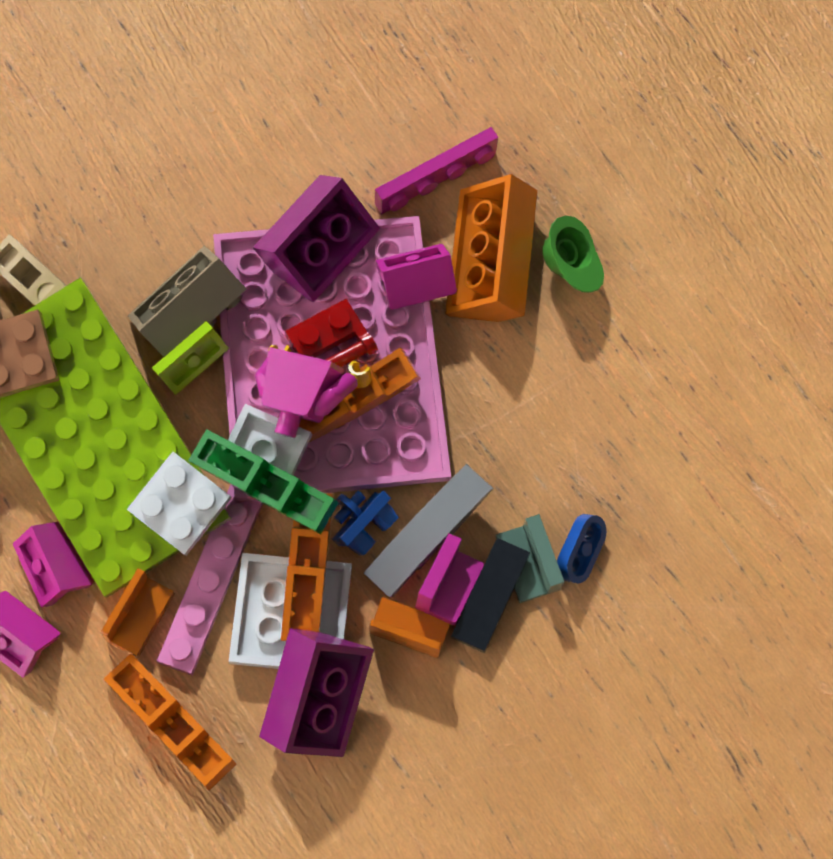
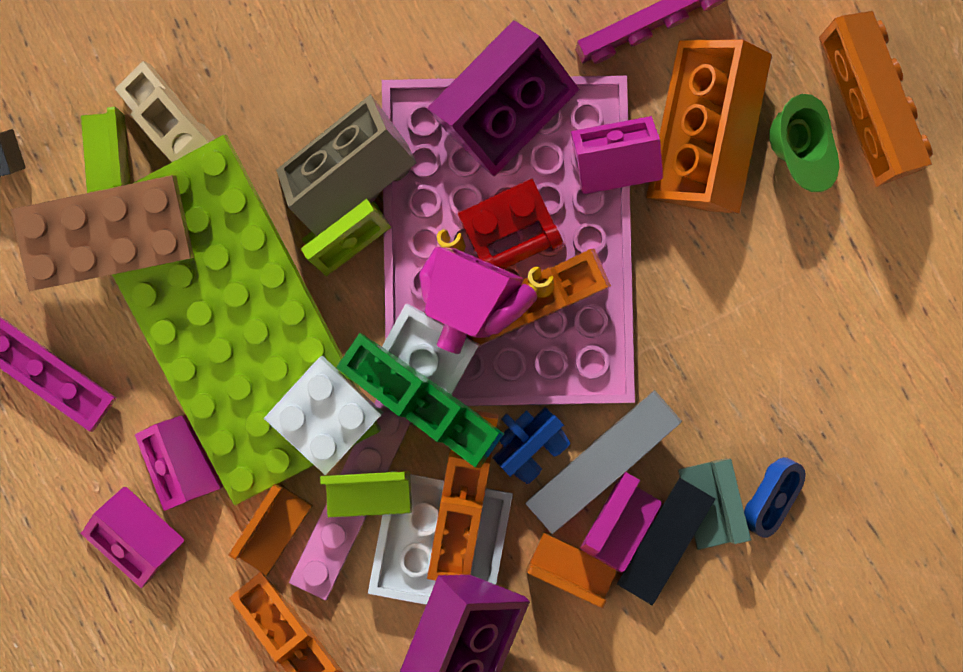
camera: 10 degrees right, 15 degrees up
(222, 568) = (368, 494): none -> lime panel
(626, 217) = (875, 97): none -> orange slope

